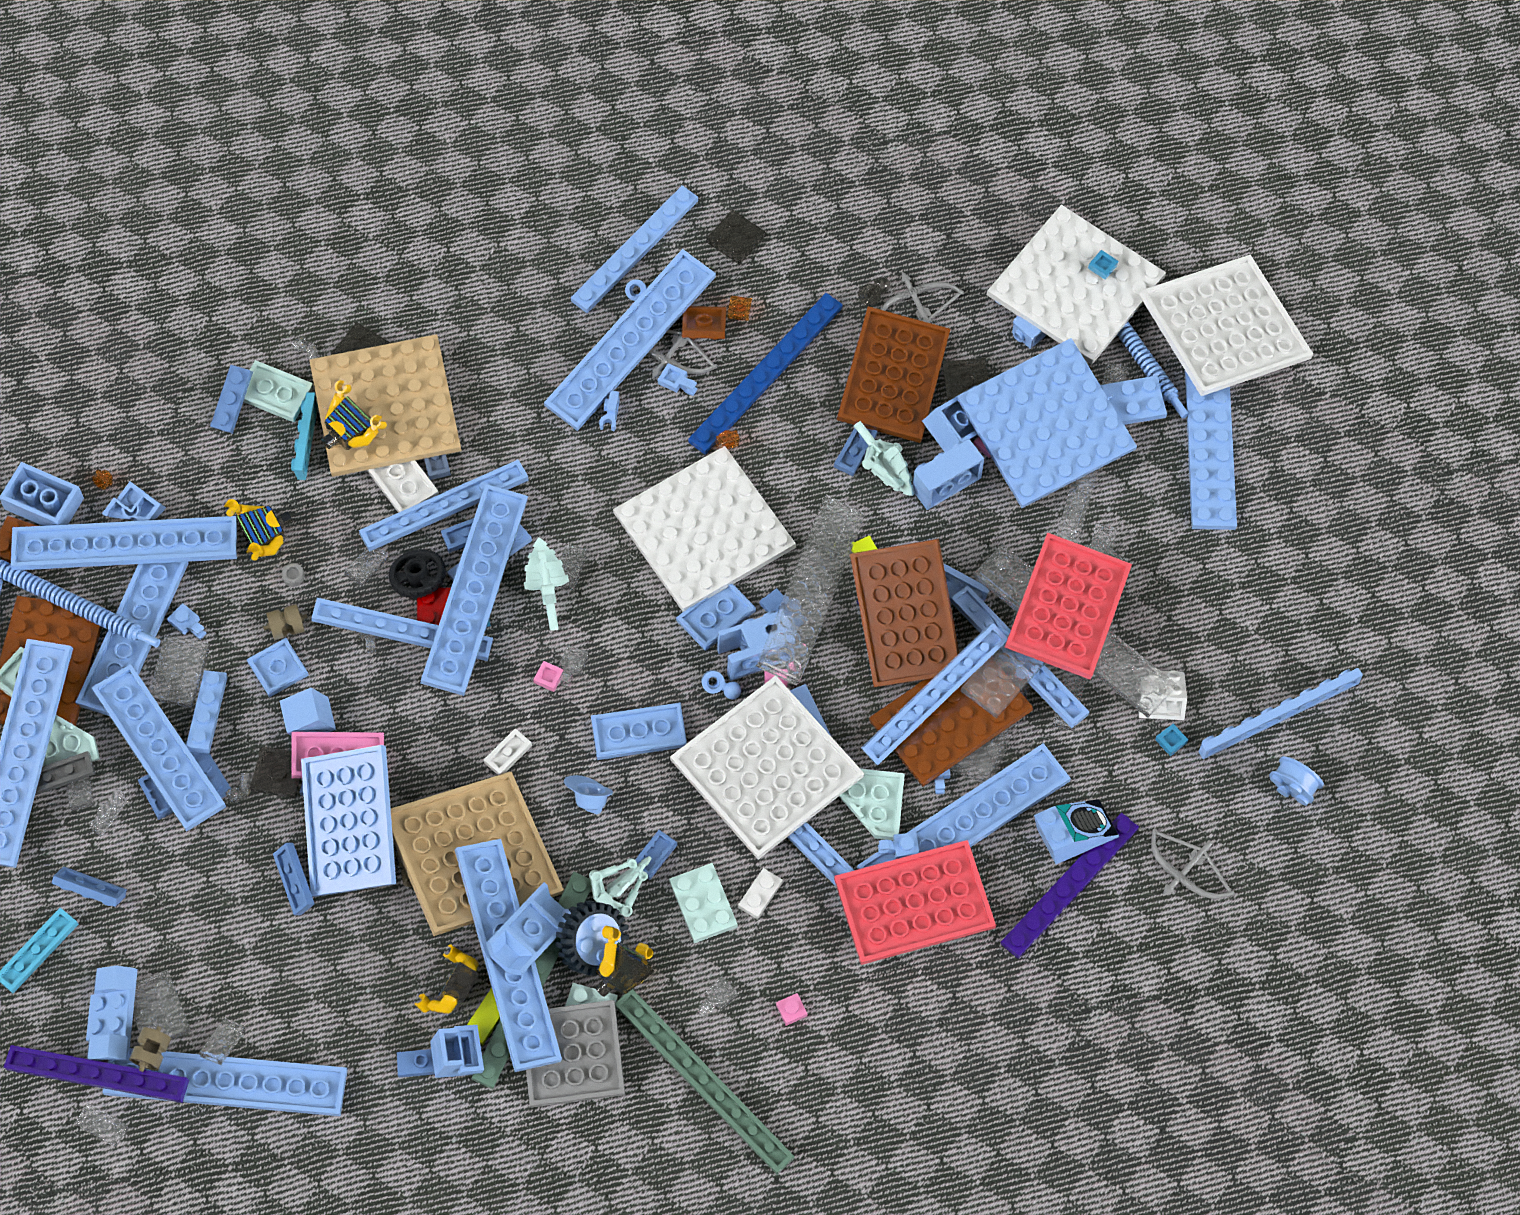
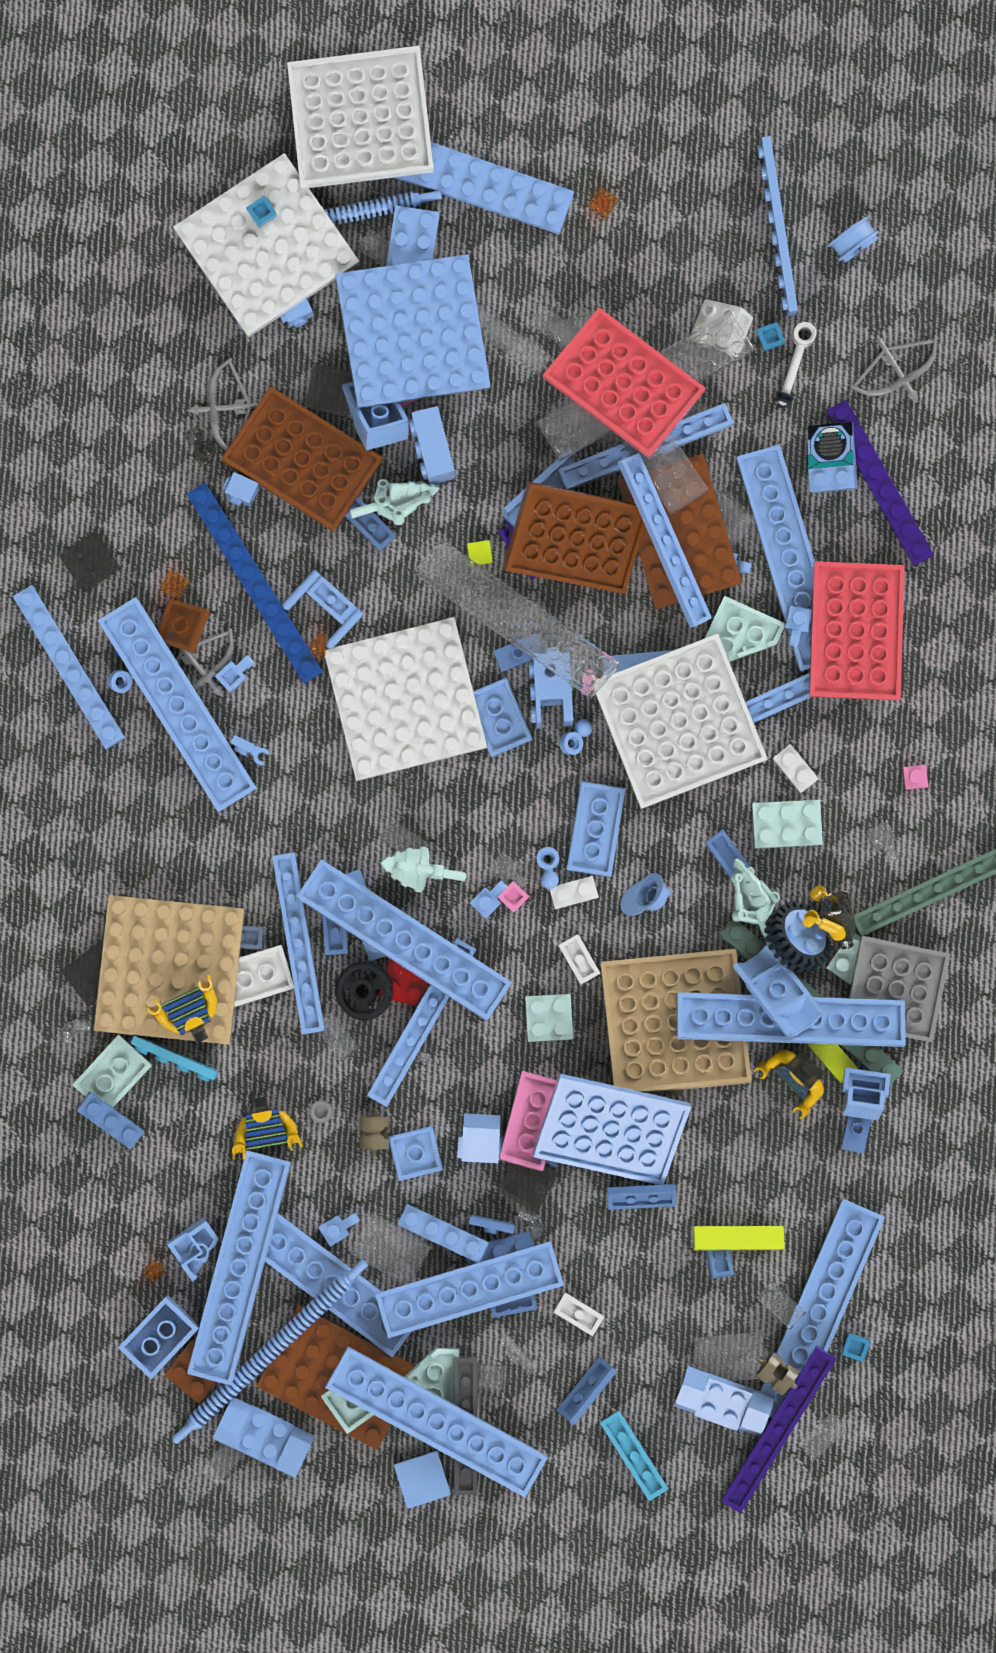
camera: 70 degrees left, 20 degrees up
(162, 857) = (578, 1314): none -> white plate
(200, 1128) = (855, 1347): none -> dark azure plate
(227, 752) = (491, 1225): none -> medium blue plate
(256, 967) = (719, 1263): none -> medium blue plate
(278, 980) = (738, 1238): none -> neon yellow tile
(443, 744) = (549, 1017): none -> light aqua plate
(536, 654) = (487, 900): none -> light blue plate
(571, 730) = (574, 892): none -> white plate
(576, 702) = (549, 878): none -> light blue plate
(772, 438) = (329, 599): none -> light blue plate
(846, 334) = (240, 489): none -> light blue brick
(1118, 769) = (784, 396): none -> white piece
(1236, 554) = (603, 203): none -> clear orange plate

